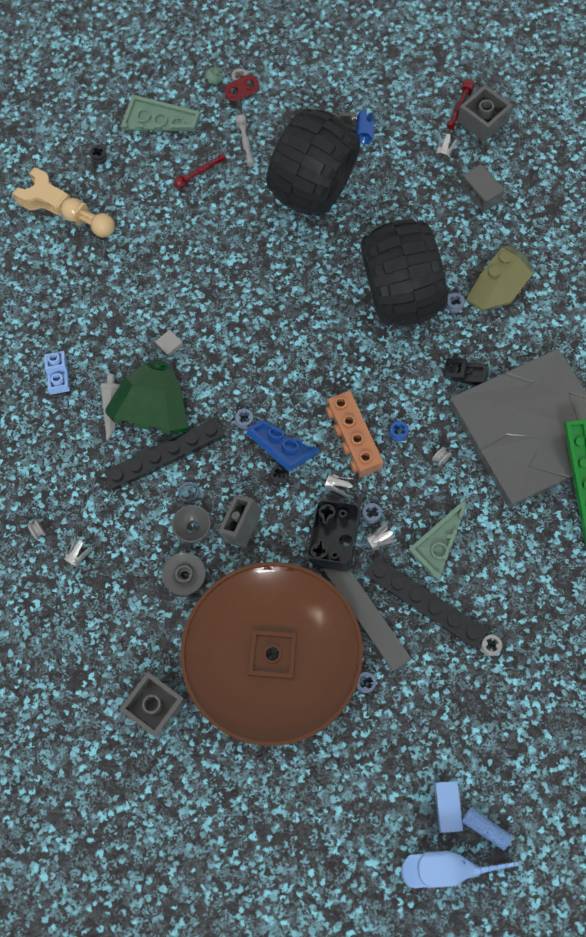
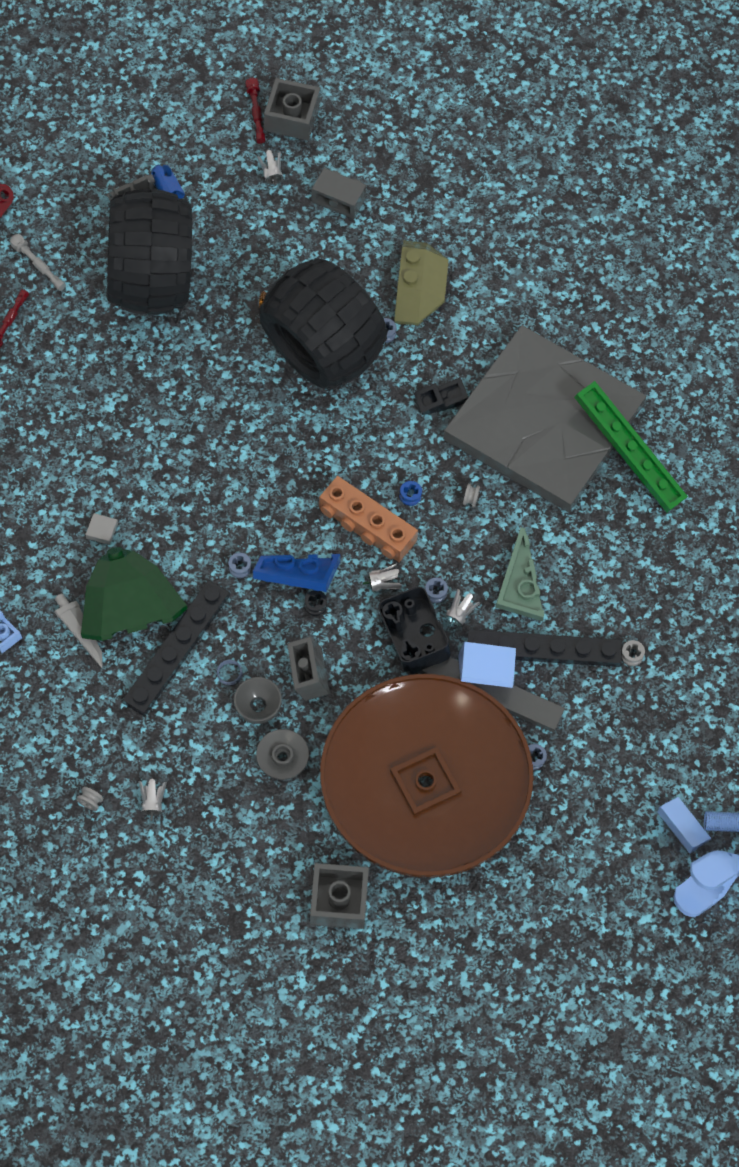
camera: 40 degrees left, 5 degrees down
(369, 594) = (487, 664): none -> light blue slope

